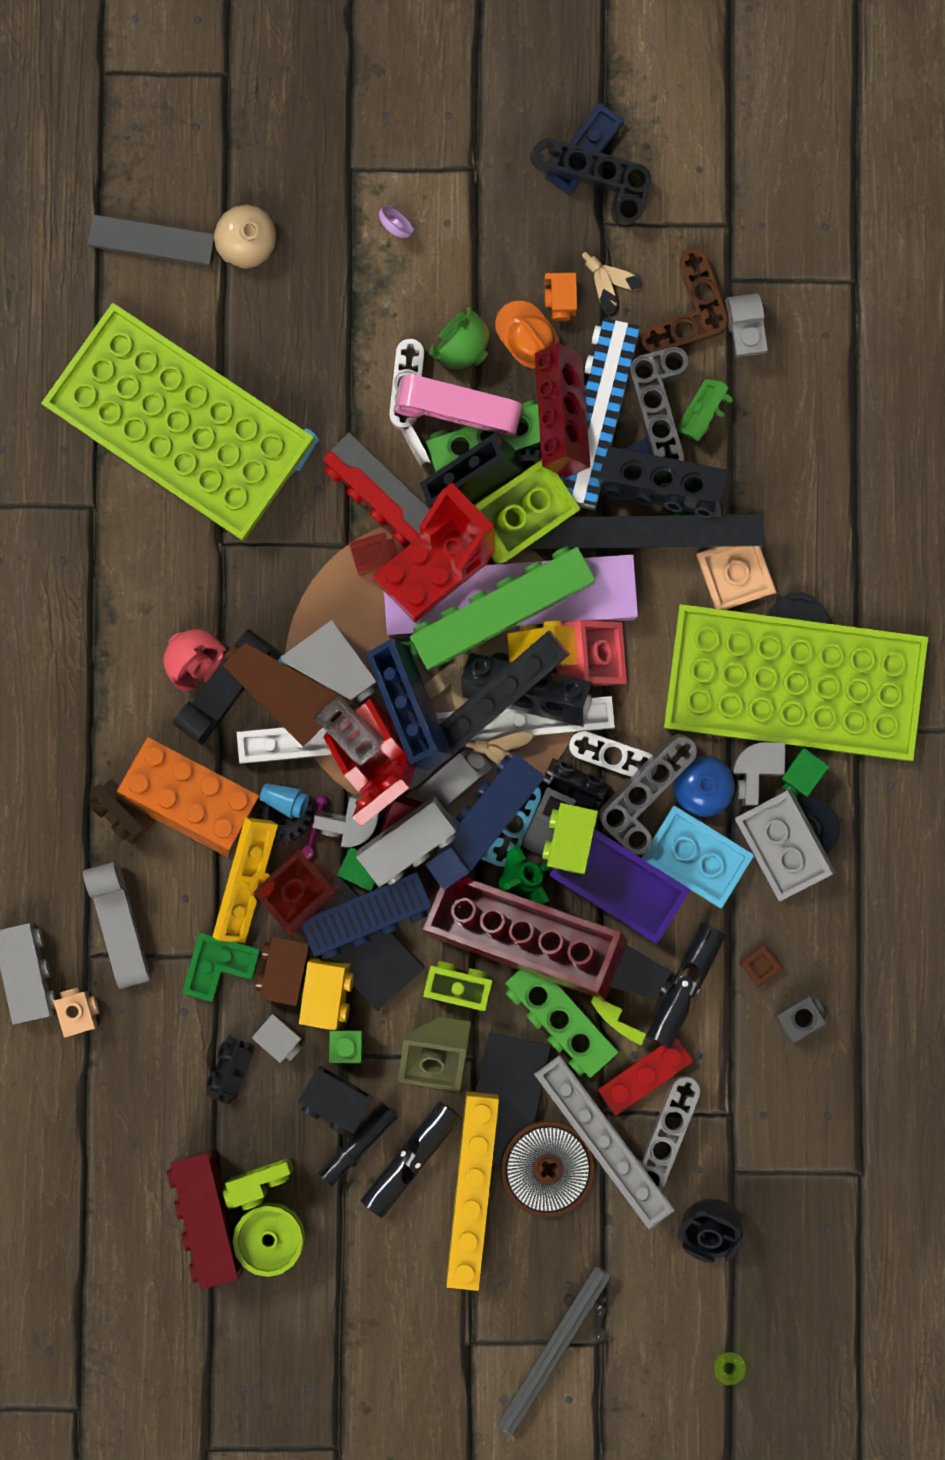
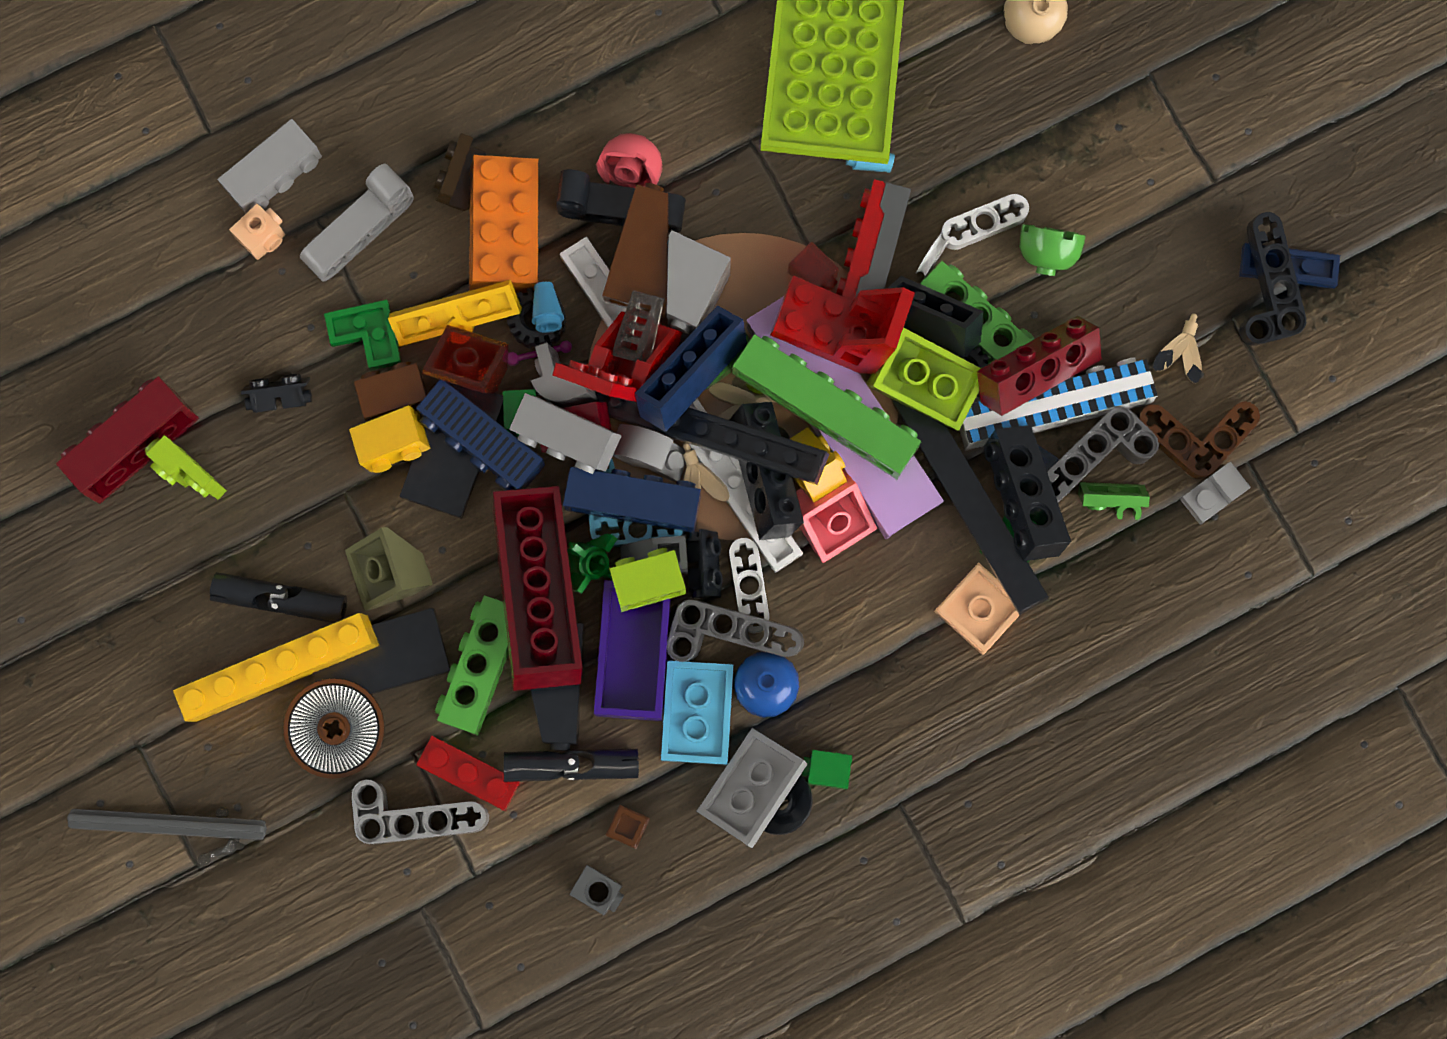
camera: 60 degrees right, 5 degrees down
(278, 1039) = (327, 420): light grey brick -> none
(283, 1252) = (143, 490): lime wheel -> none
(335, 1100) = (295, 498): black brick -> none
(345, 1046) = (351, 484): bright green brick -> none
(357, 1145) = (254, 540): black pin -> none
(395, 222) = (1124, 132): lavender piece -> none
(448, 867) = (561, 483): dark blue tile -> none
(456, 404) = (990, 268): bright pink beam -> none
(457, 987) = (457, 554): lime brick -> none
(524, 331) = (1093, 297): orange piece -> none
(561, 296) = (1144, 313): orange brick -> none
(604, 1142) = (382, 766): light grey tile -> none
(611, 1015) = (507, 709): lime slope -> none
(711, 1230) = (352, 910): black cylinder -> none
(734, 1377) = (225, 1007): clear neon green plate -> none
(757, 761) = (815, 718): light grey brick -> none
(796, 682) = (910, 718): lime plate -> none
(799, 607) = (980, 685): black tile -> none

